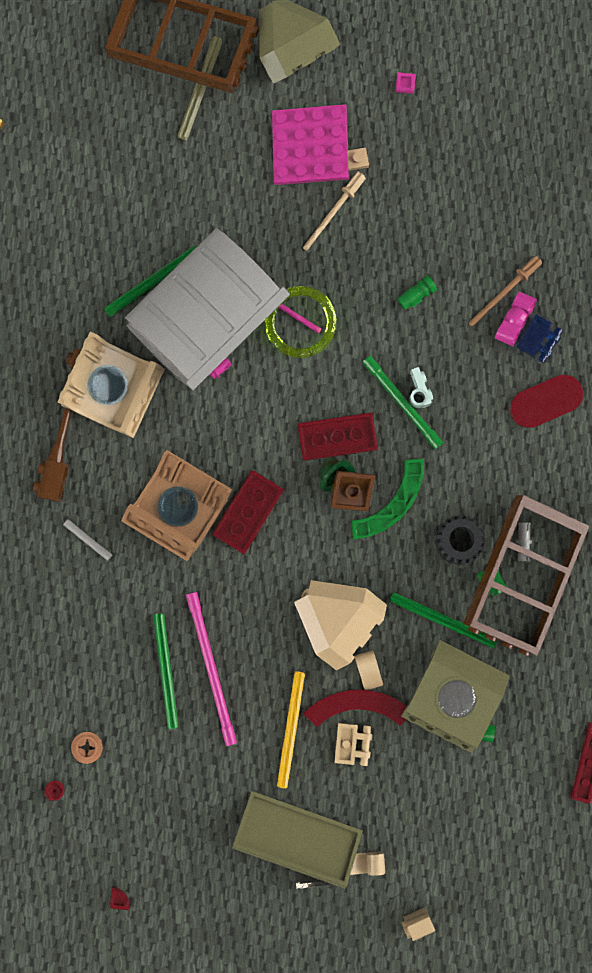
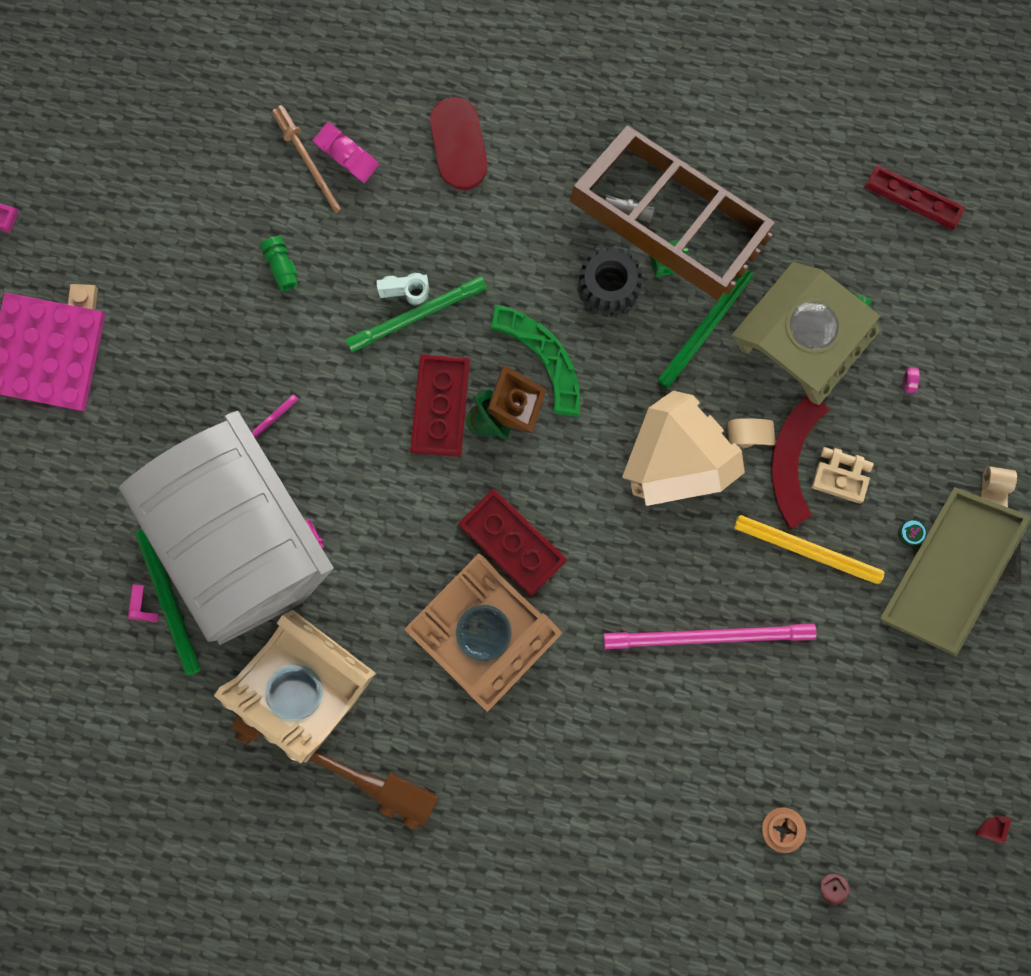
camera: 80 degrees left, 5 degrees down
(88, 540) = (500, 767): light grey bar -> none
(142, 260) = (135, 606): none -> dark pink tile
(165, 670) = (700, 698): green axle -> none
(321, 804) = (912, 532): none -> dark green tile
(325, 340) = (308, 389): clear neon green wedge -> none
(348, 191) = (122, 318): tan piece -> none
(437, 783) = (911, 380): none -> dark pink tile
(534, 336) = (373, 137): clear blue plate -> none

